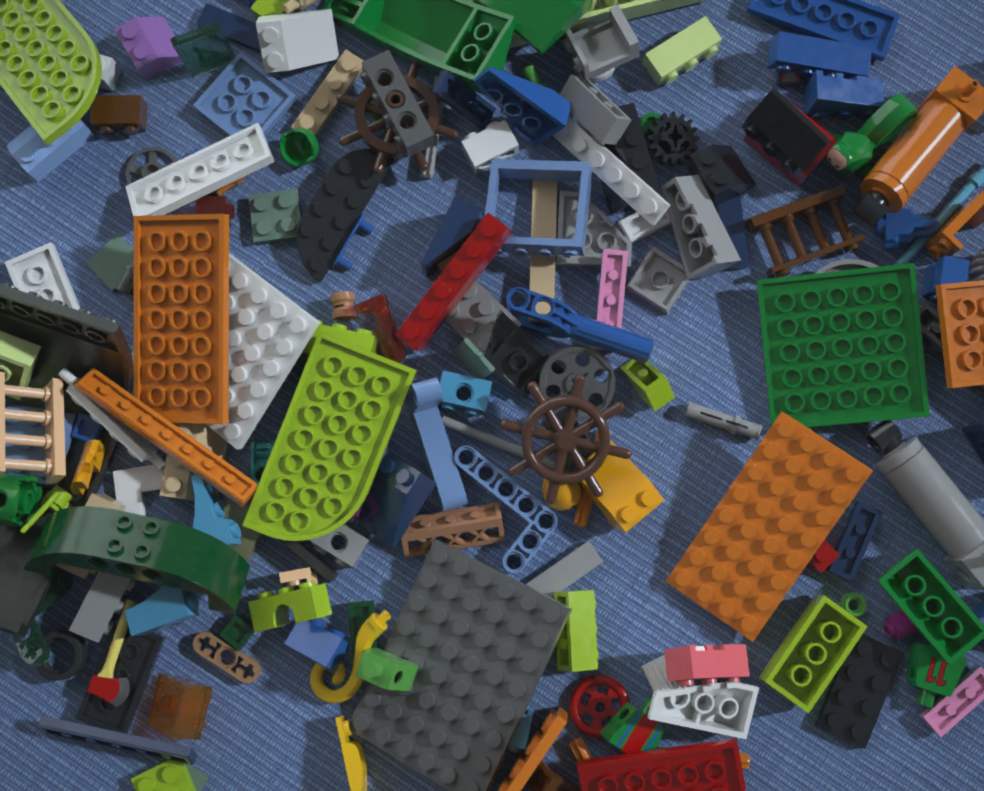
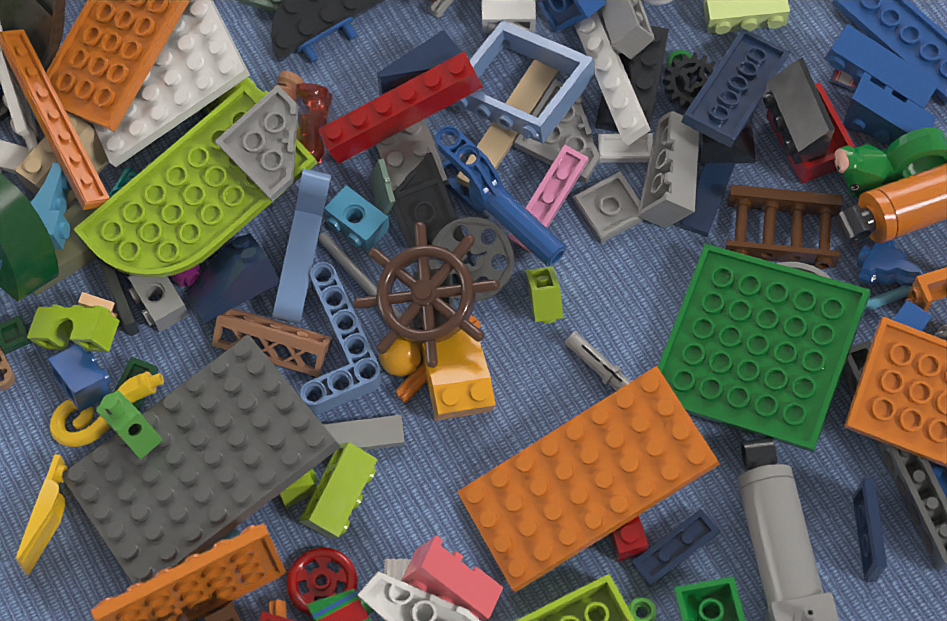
camera: 30 degrees right, 15 degrees down
(368, 378) = (265, 142): none -> light grey plate
(716, 131) = (735, 87): none -> dark blue plate

